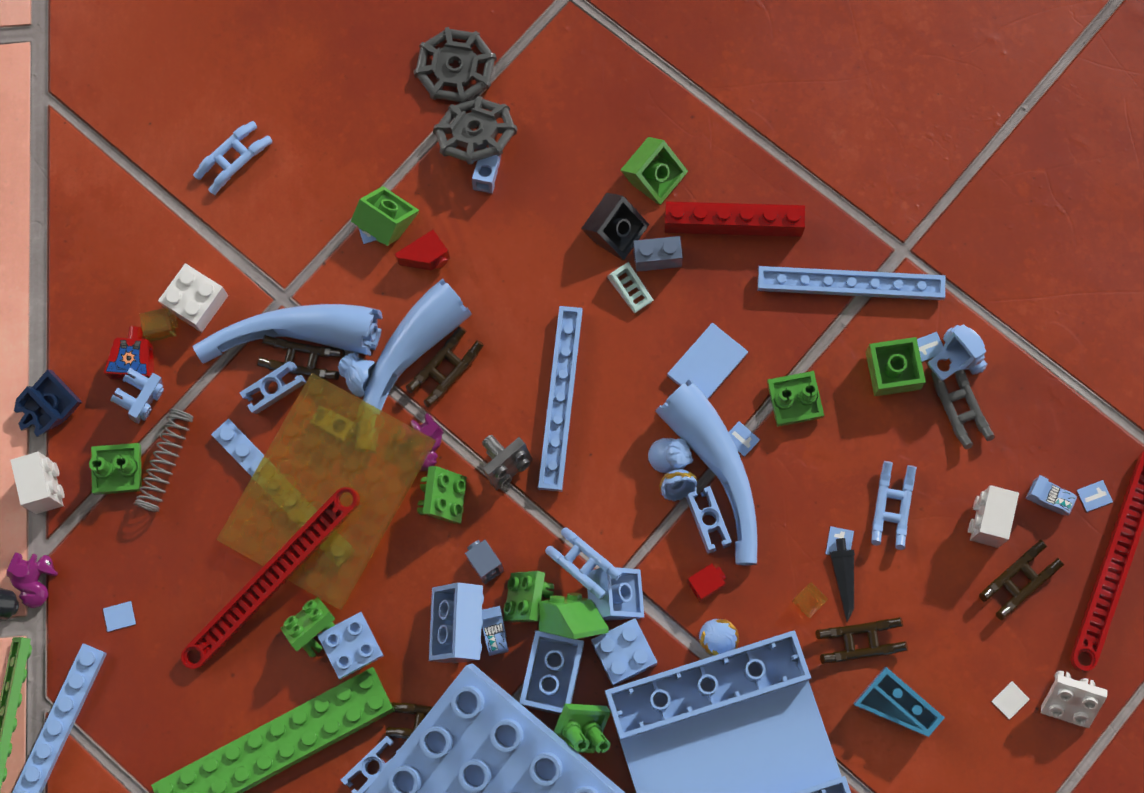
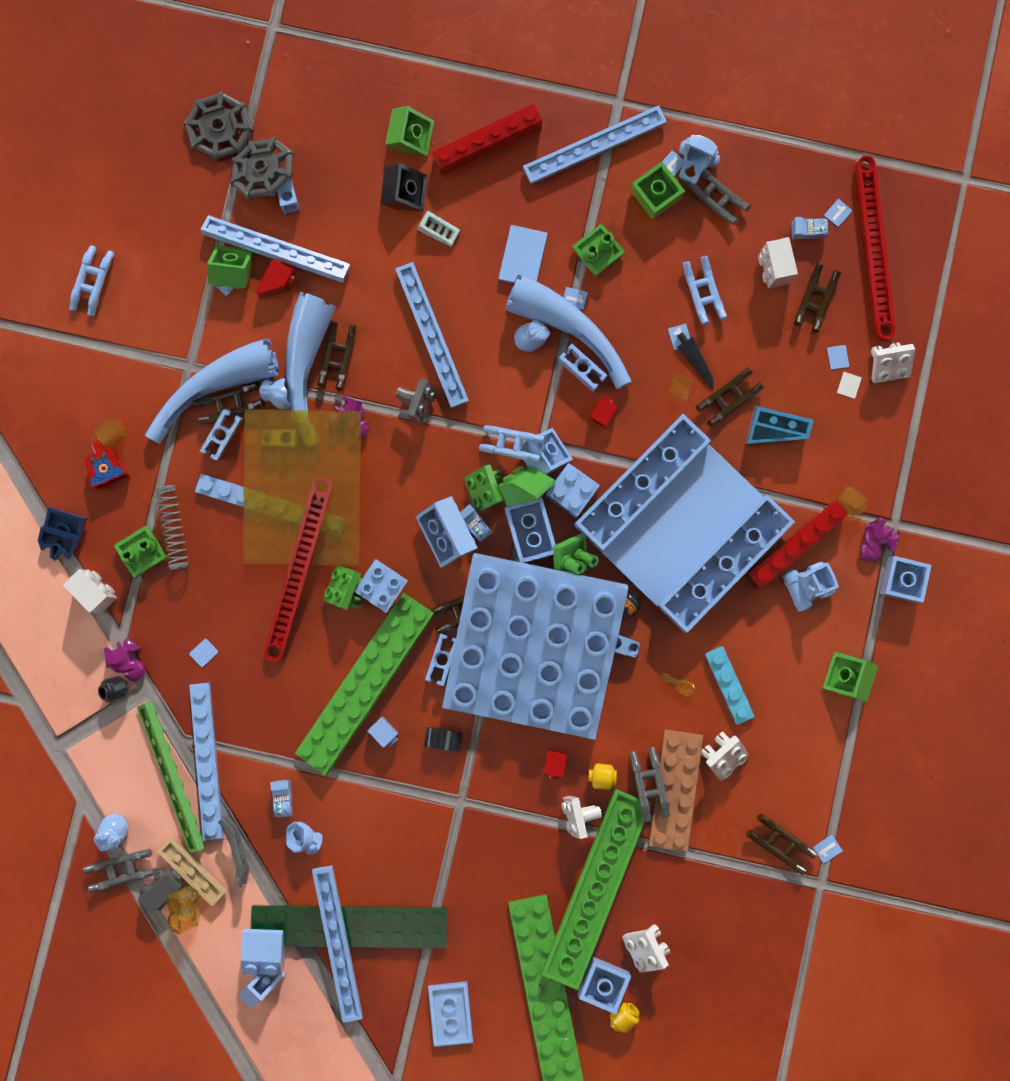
camera: 35 degrees left, 10 degrees up
(139, 407) = (132, 482): light blue plate -> none
(193, 297) = (124, 399): white brick -> none
(443, 221) = (275, 249): none -> light blue plate
(443, 495) = (387, 447): bright green plate -> none
(484, 561) = (441, 478): sand blue brick -> none
(657, 253) = (445, 193): sand blue brick -> none
(677, 484) = (548, 354): light blue hair -> none
(718, 636) = (631, 446): light blue hair -> none
(1013, 660) = (838, 357): none -> light blue sticker

